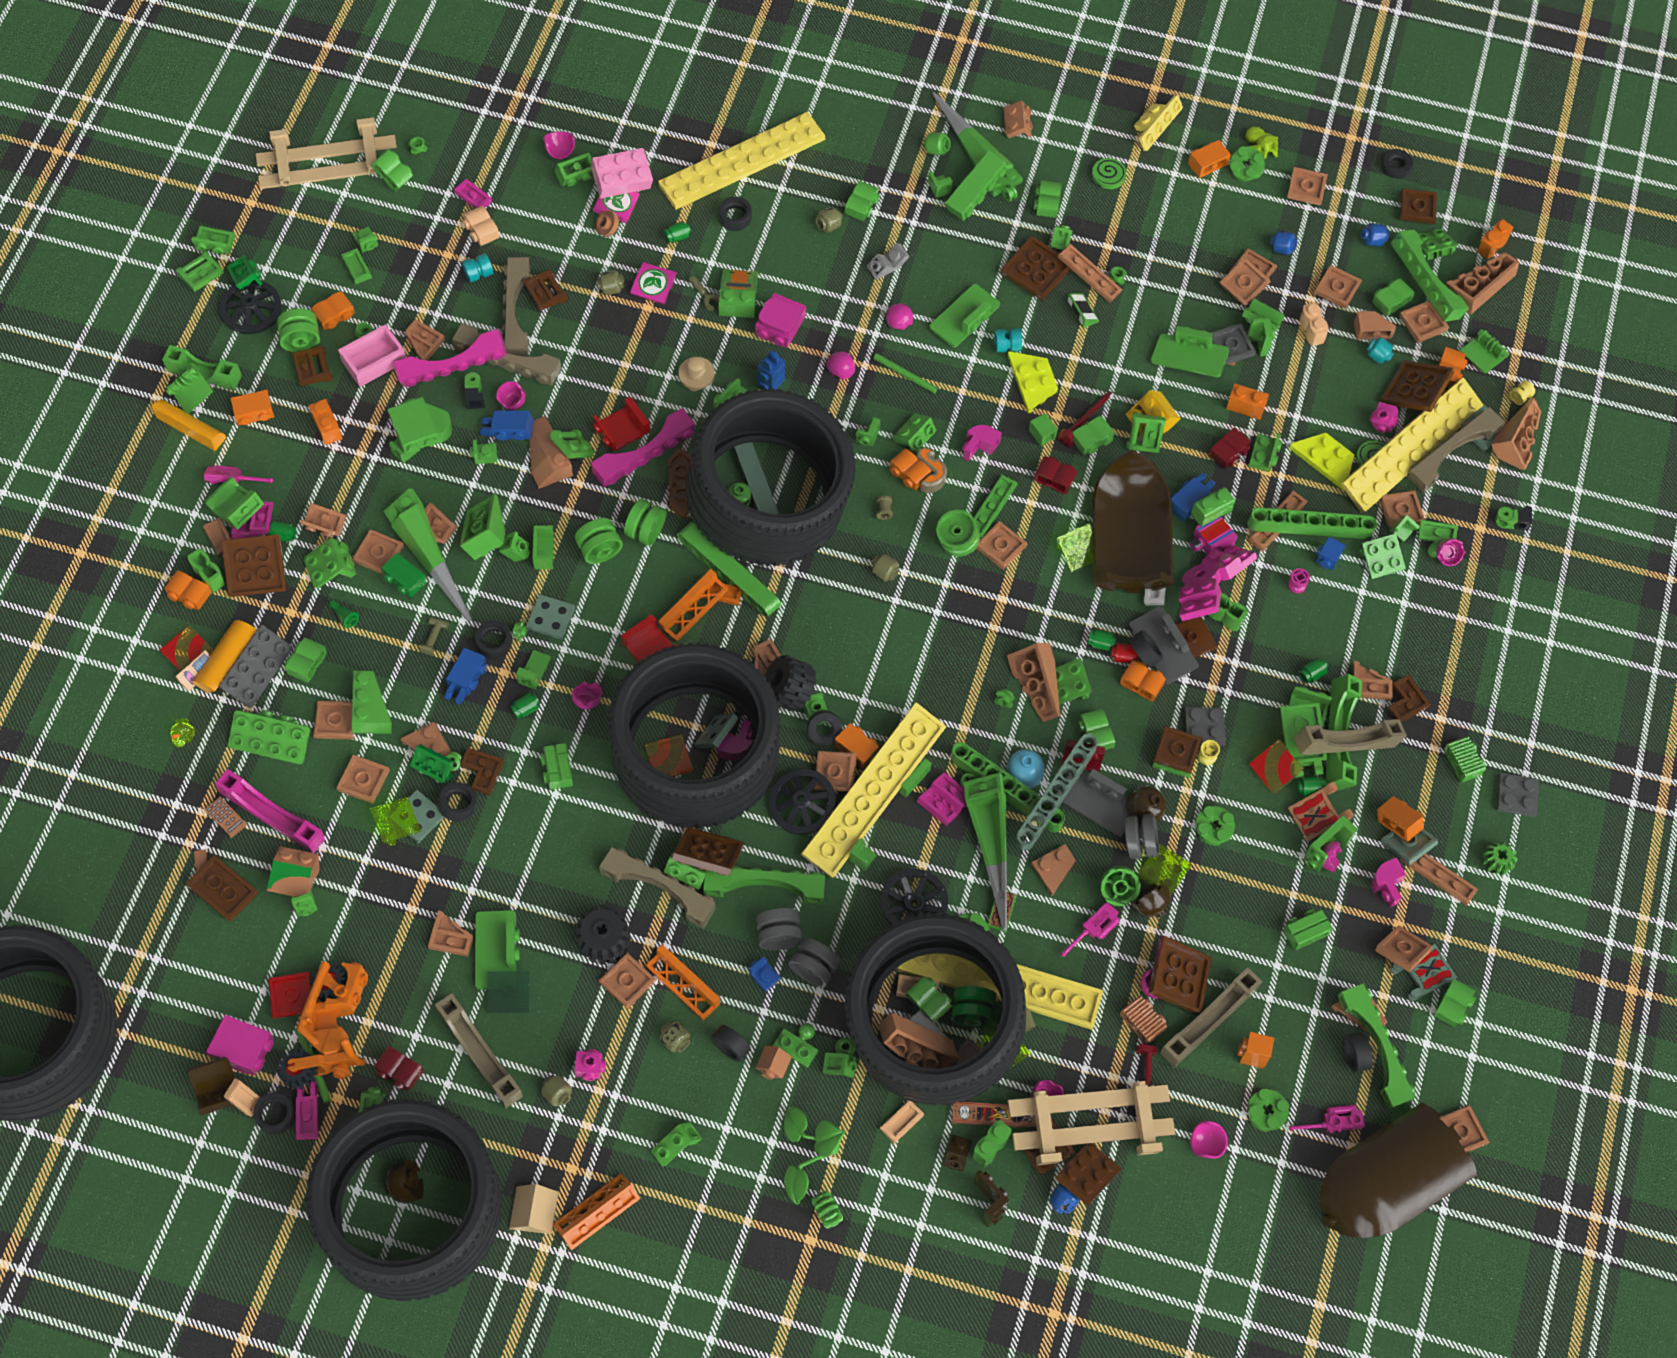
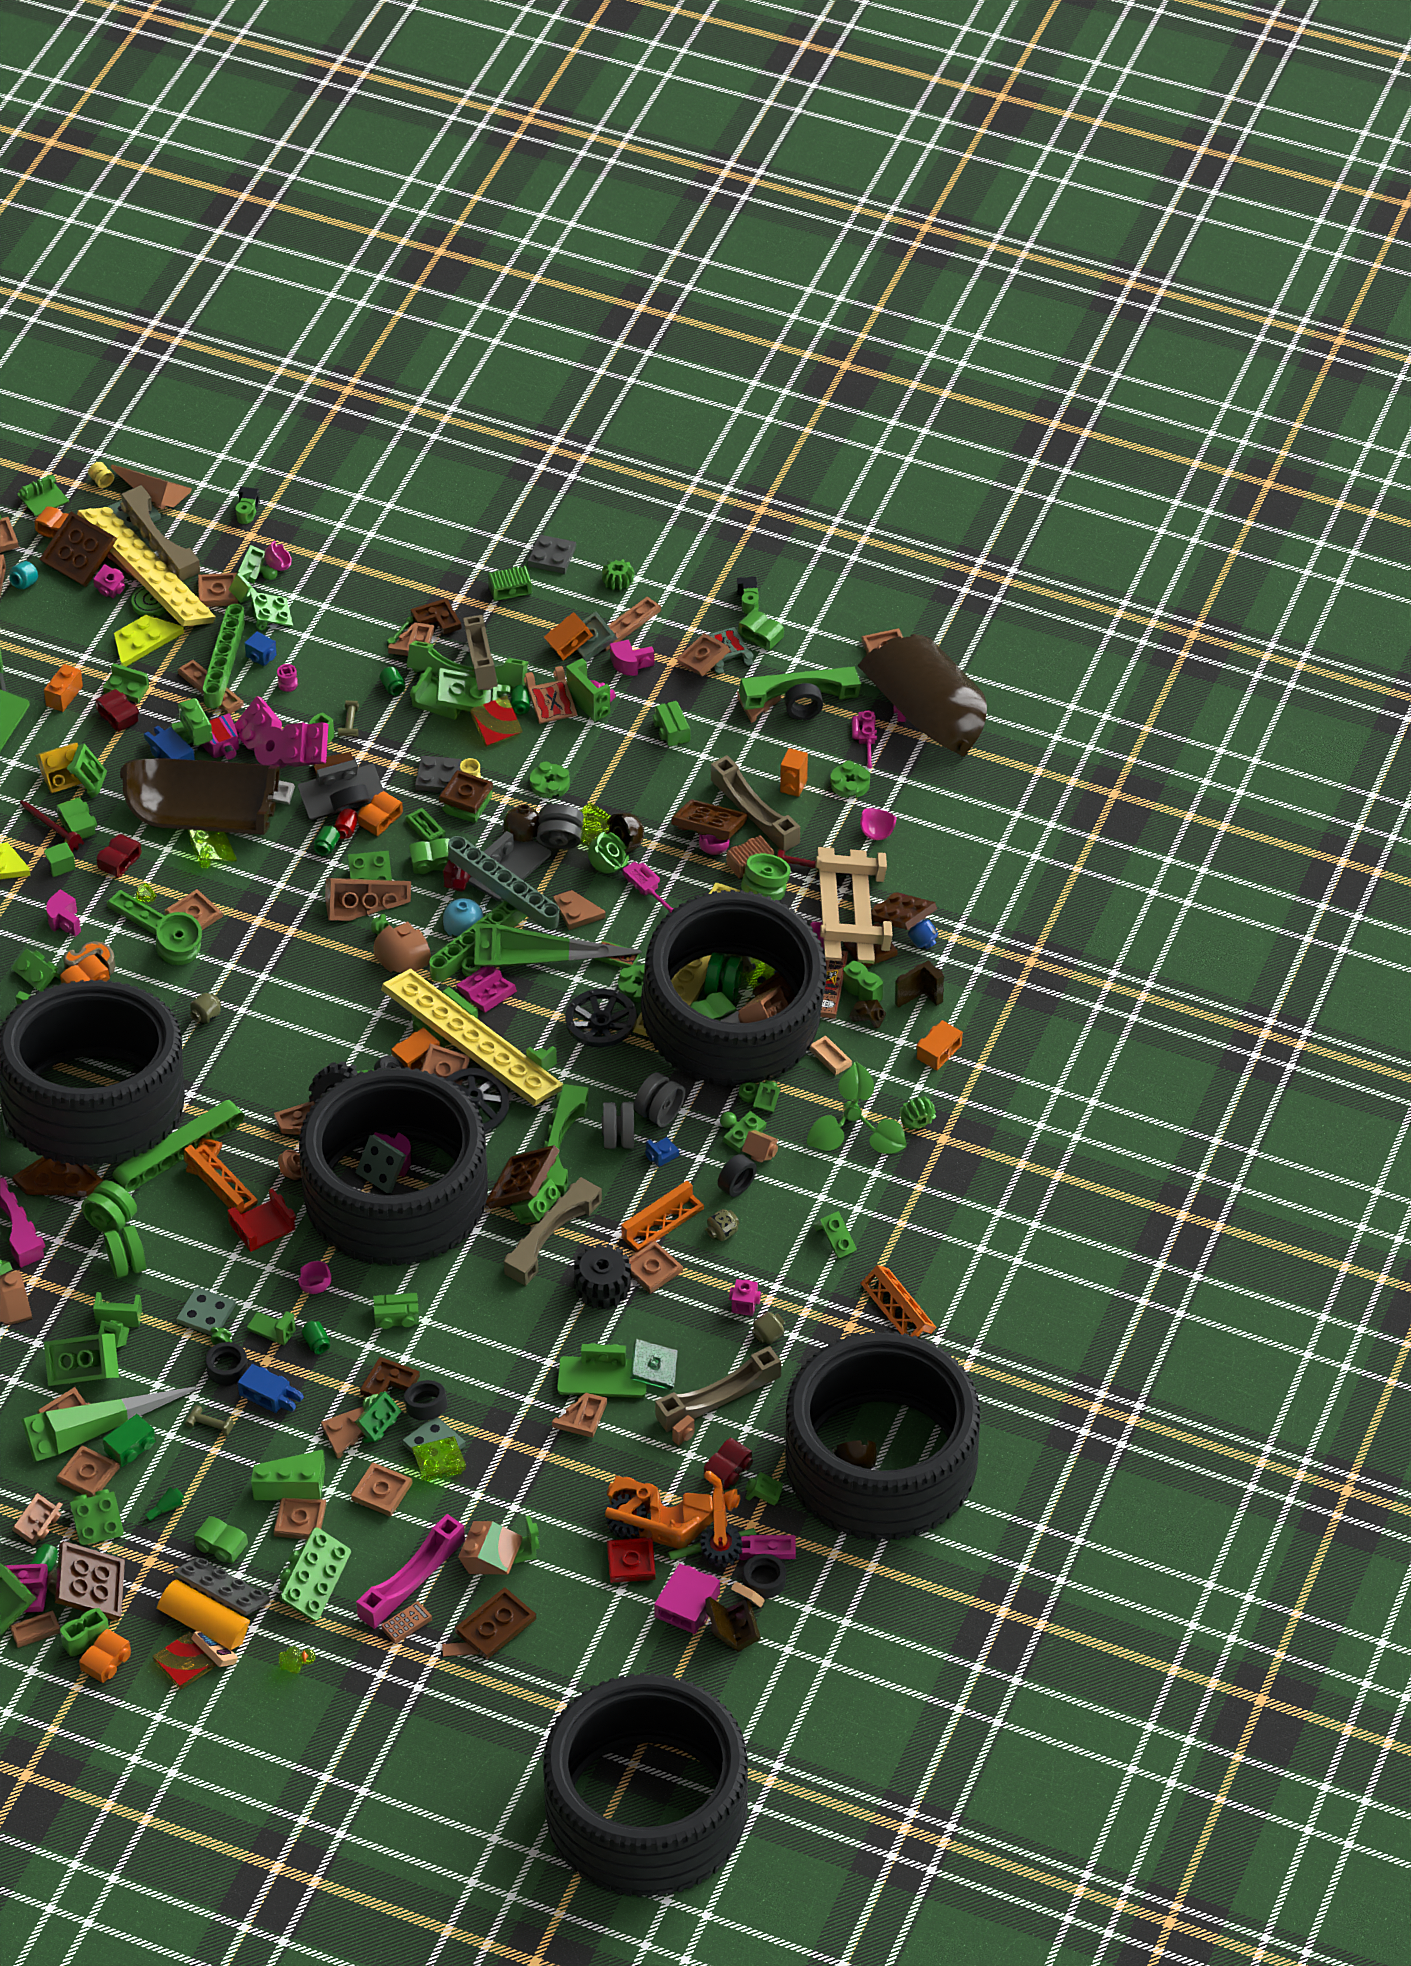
camera: 80 degrees left, 15 degrees down
(434, 1026) = (683, 1430): none -> nougat plate
(923, 1225) = (939, 1045): none -> orange brick
(976, 719) = (402, 948): none -> nougat brick
(1016, 502) = (145, 893): none -> clear neon green tile
(1110, 1035) = (766, 876): none -> bright green wheel
(1127, 733) = (421, 826): none -> bright green tile
(1244, 642) = (351, 707): none -> olive piece
(1369, 665) = (409, 620): none -> bright green hinge
(1502, 988) = (749, 590): none -> leg

